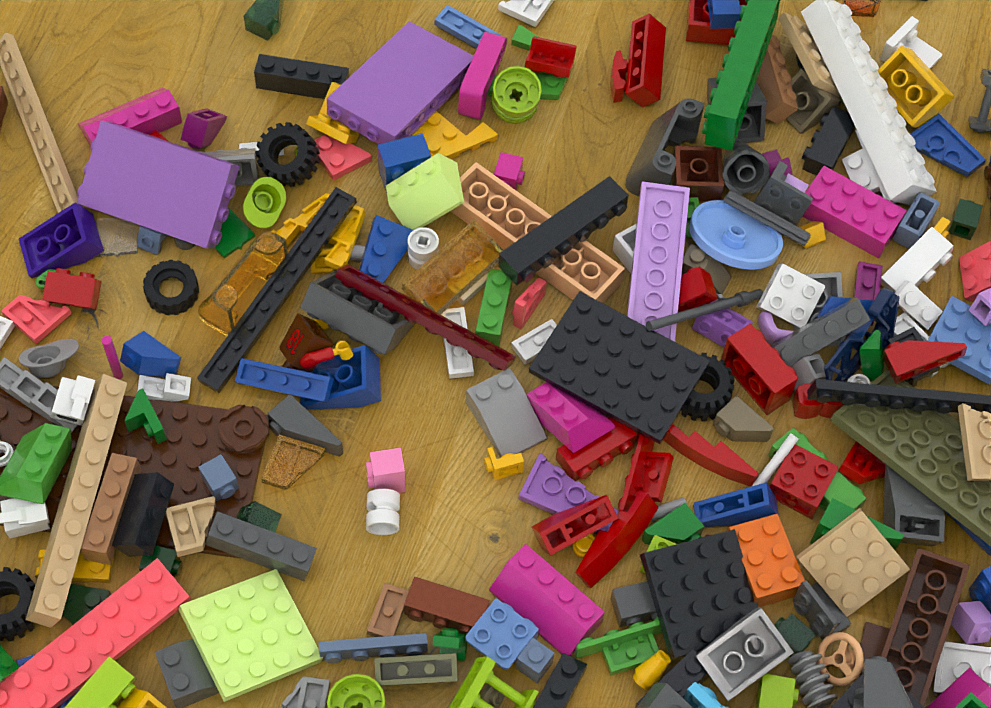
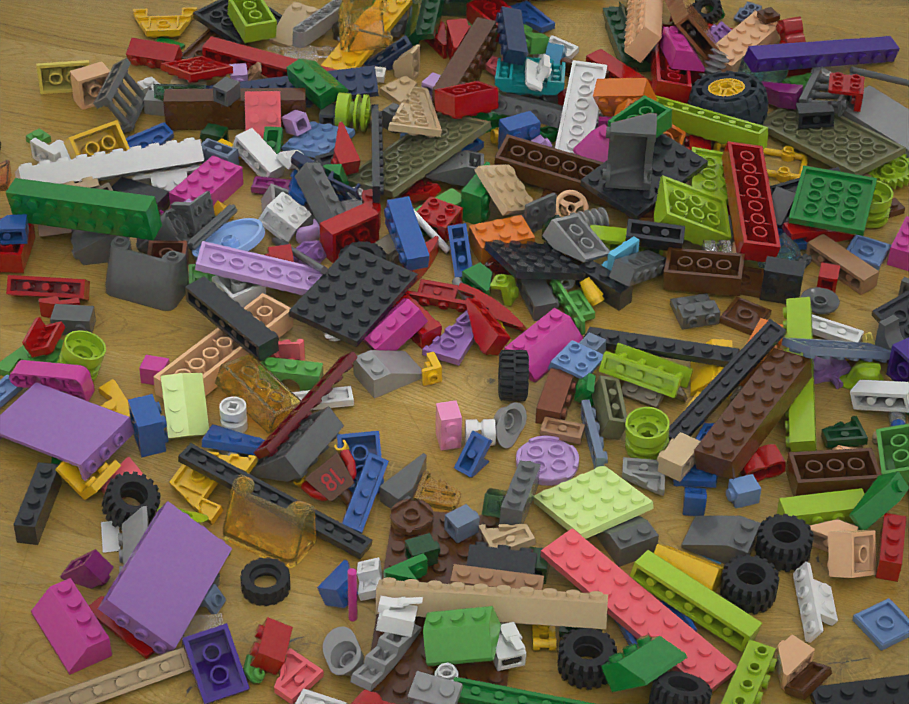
camera: 90 degrees left, 20 degrees down
(178, 433) = (425, 545): none -> dark green brick
(341, 593) = (557, 459): none -> lavender tile
(345, 504) = (472, 456): none -> blue slope
(392, 545) = (509, 423): none -> light grey piece
(470, 550) = (513, 375): none -> black tyre
(530, 344) = (320, 352): white plate -> none
(595, 90) = (74, 317): none -> dark grey brick
(736, 427) = (406, 233): none -> blue wedge
(946, 35) = (39, 134): none -> bright green plate
(950, 281) = (274, 137): none -> green slope

